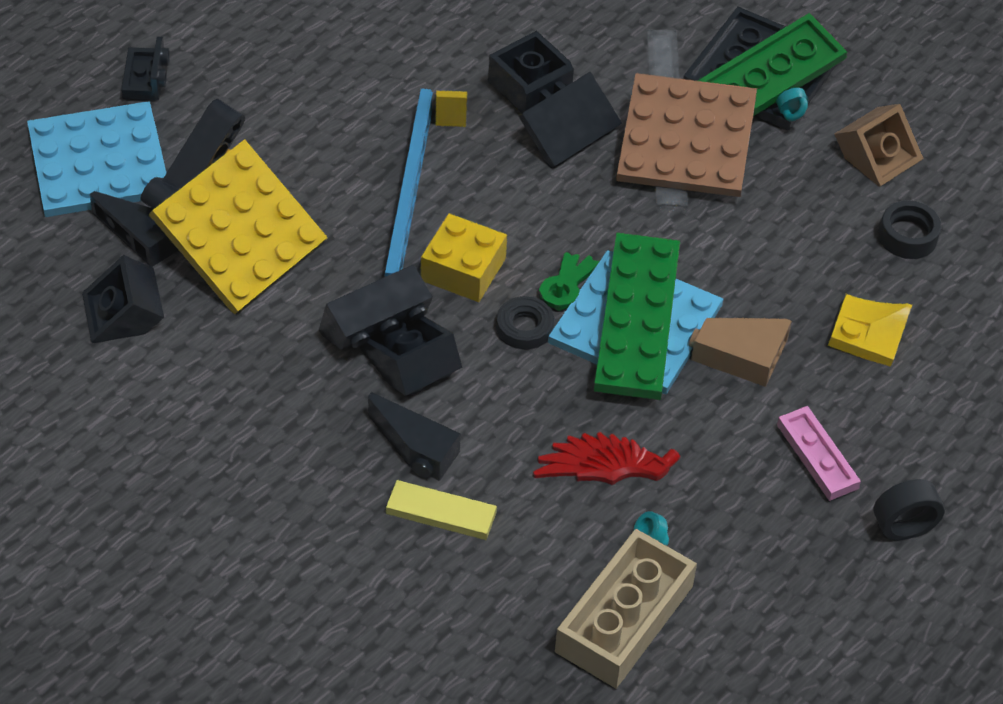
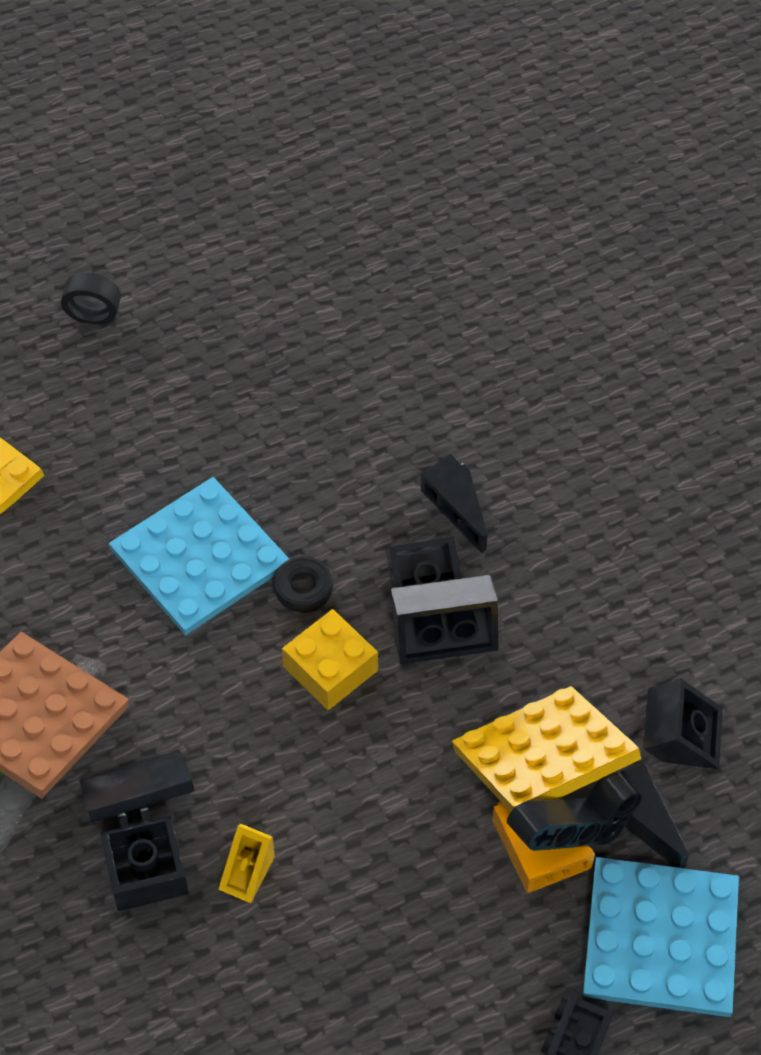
camera: 155 degrees left, 5 degrees up
(410, 183) = (342, 768): dark azure tile -> none
(441, 510) = (461, 441): light yellow tile -> none
(562, 289) = (252, 605): green piece -> none
(604, 460) = (302, 440): red animal -> none
(625, 608) = (356, 303): tan brick -> none
(637, 316) = (199, 540): green plate -> none
(653, 526) = (299, 364): teal tile -> none
(741, 346) = (122, 486): medium nougat slope -> none
(818, 453) = (123, 382): bright pink plate -> none

